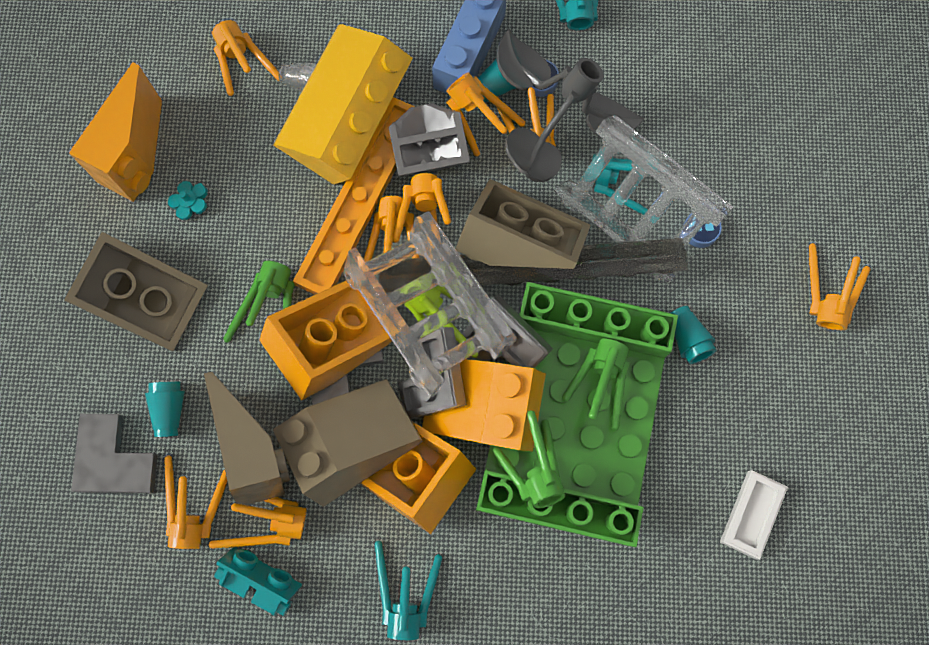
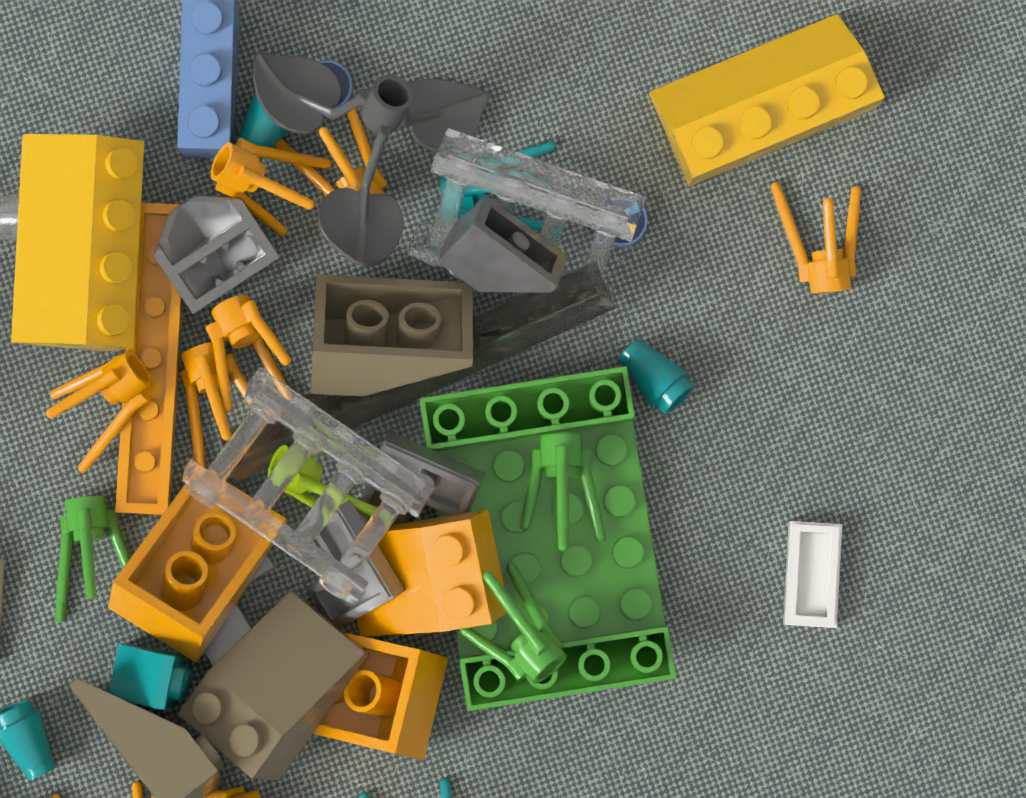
camera: 25 degrees left, 10 degrees up
(267, 397) = (150, 676): none -> teal slope
(330, 195) = (117, 381): none -> light orange plant
(619, 206) = (500, 252): none -> flat silver slope
(829, 190) = (766, 99): none -> yellow slope

